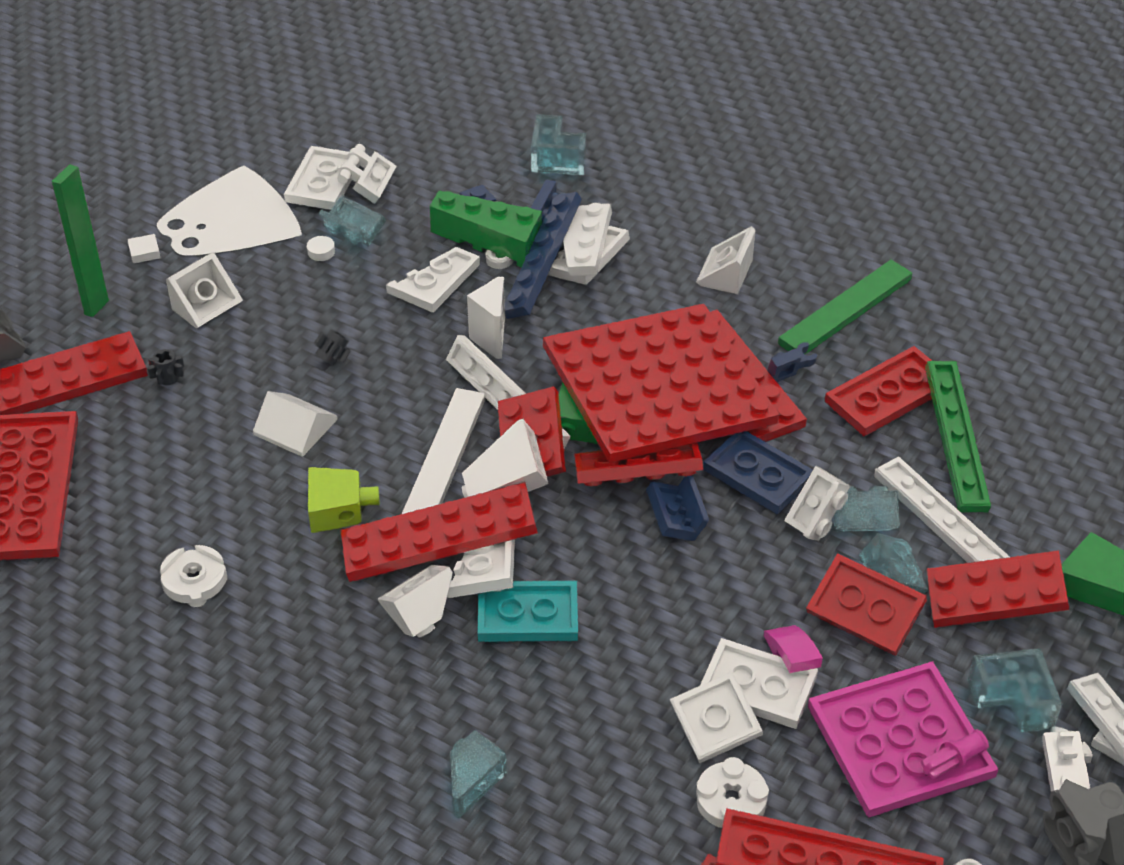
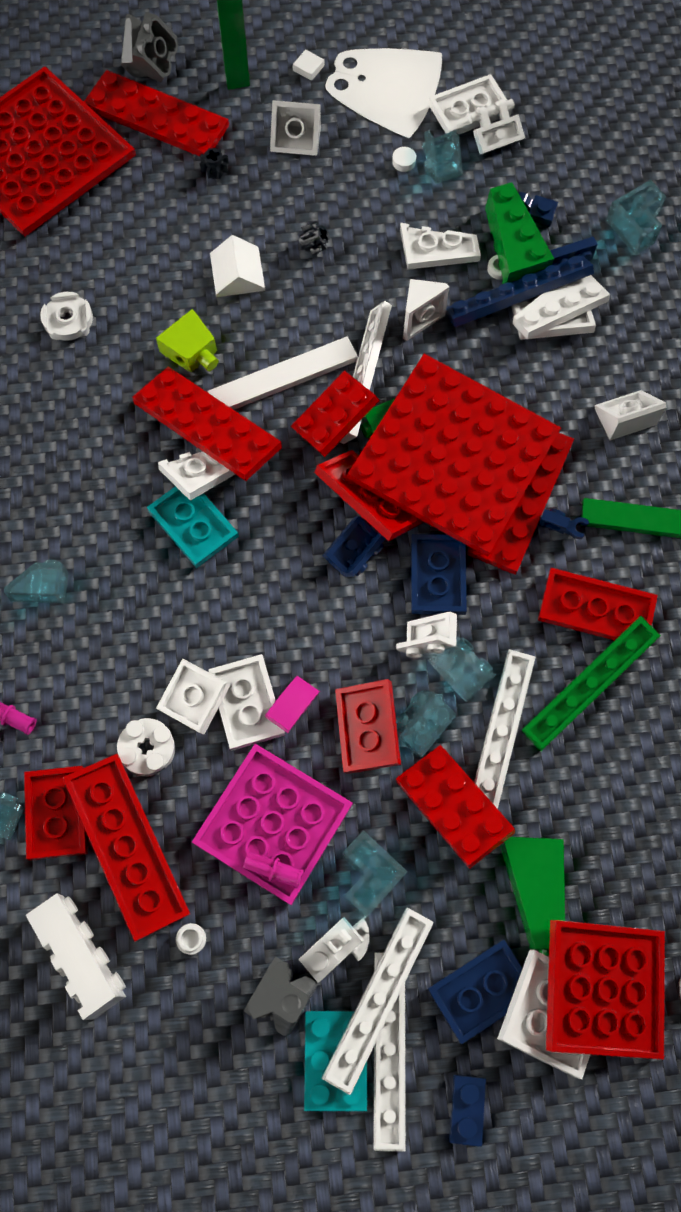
camera: 50 degrees right, 25 degrees up
(419, 600) = (141, 451): white slope -> none
(507, 462) = (291, 420): white slope -> none

